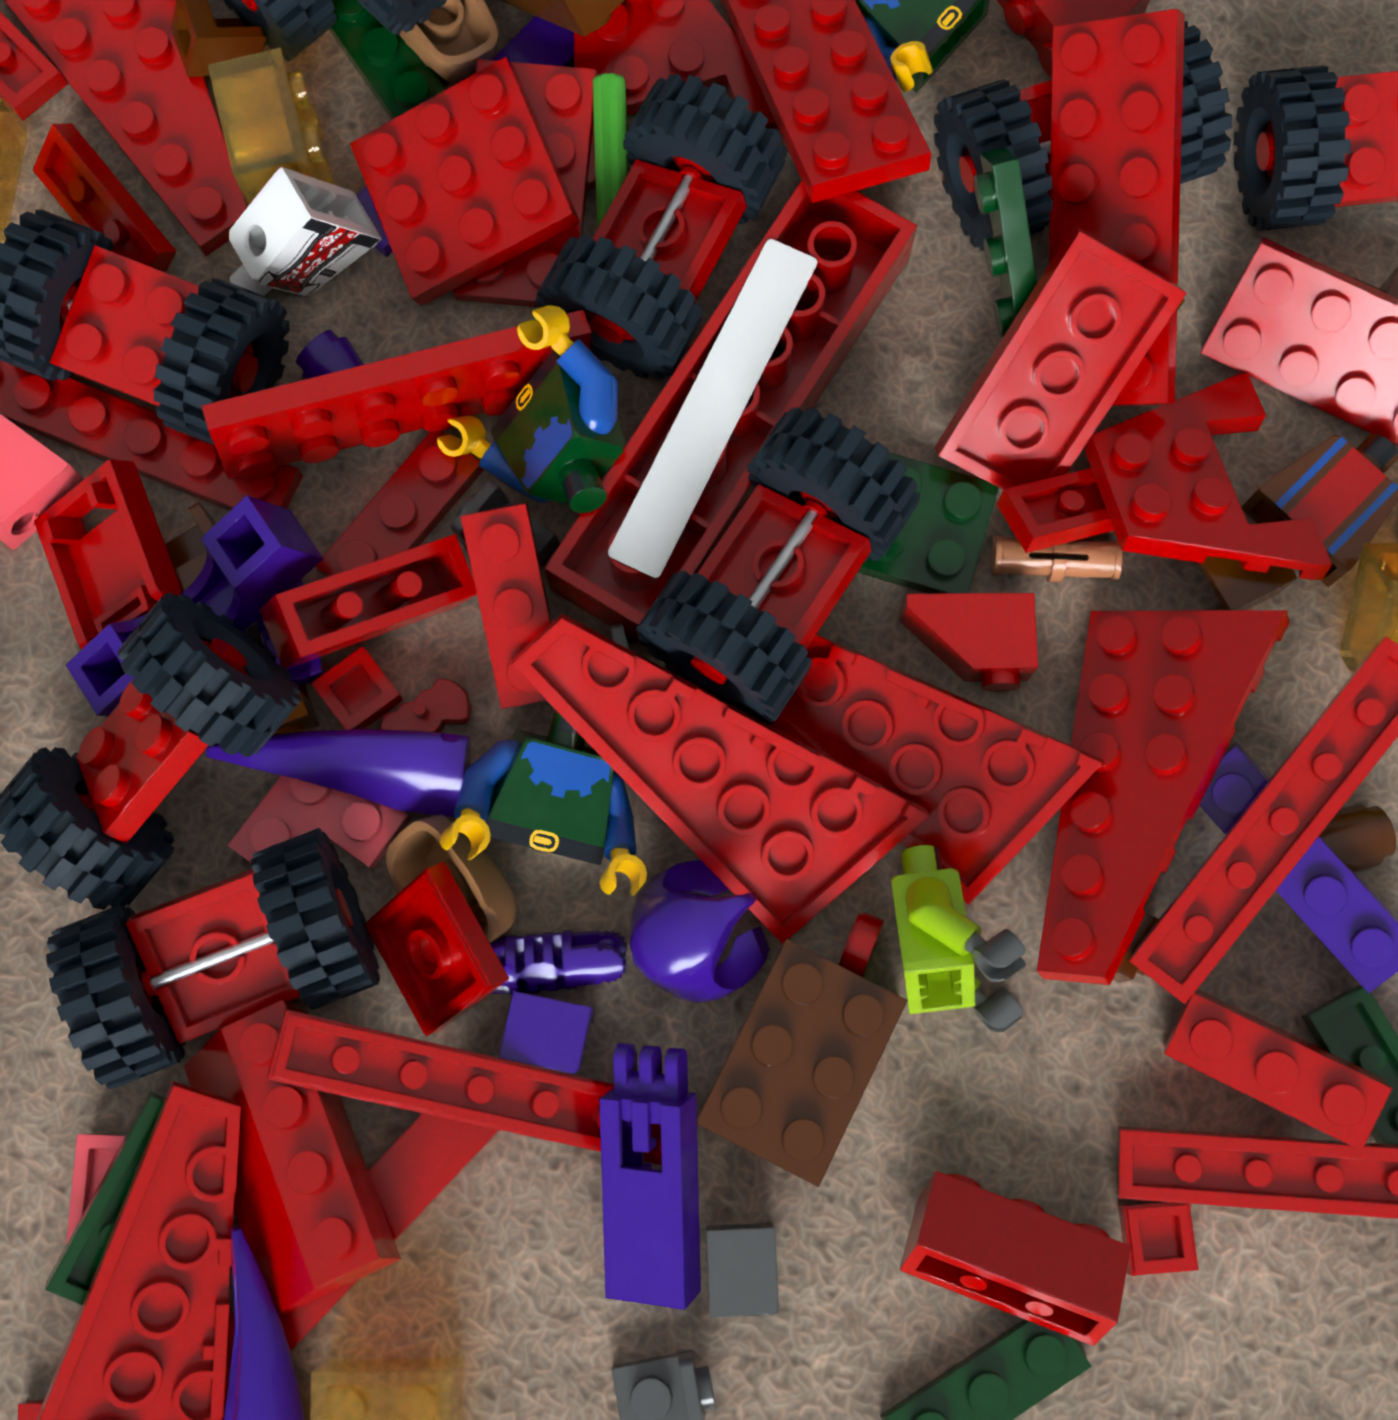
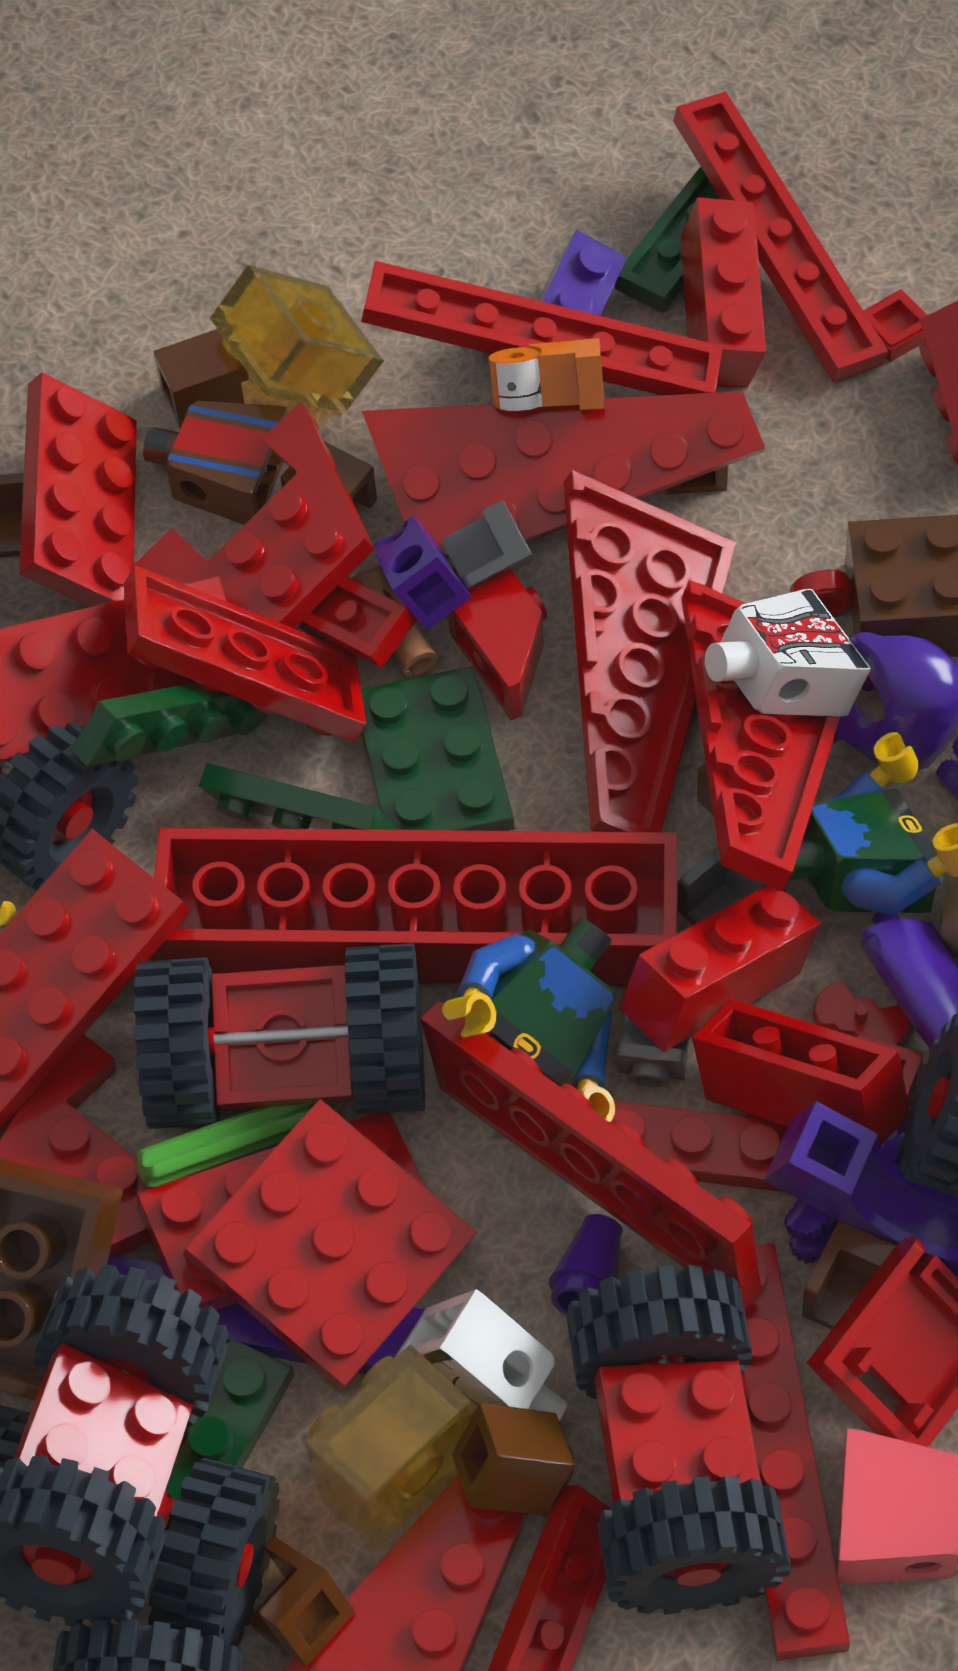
camera: 115 degrees left, 20 degrees down
(198, 214) = (513, 1459): none -> reddish brown brick
(712, 409) = (436, 893): white sticker -> none
(771, 829) = (789, 657): none -> white torso
(783, 563) = (559, 753): black plate -> none
(897, 363) = (288, 805): none -> dark green plate
(941, 944) = (787, 524): lime torso -> none
(1070, 662) = (487, 547): none -> dark grey panel
(1076, 575) = (420, 573): none -> dark purple leg
(1219, 793) = (548, 376): none -> orange leg

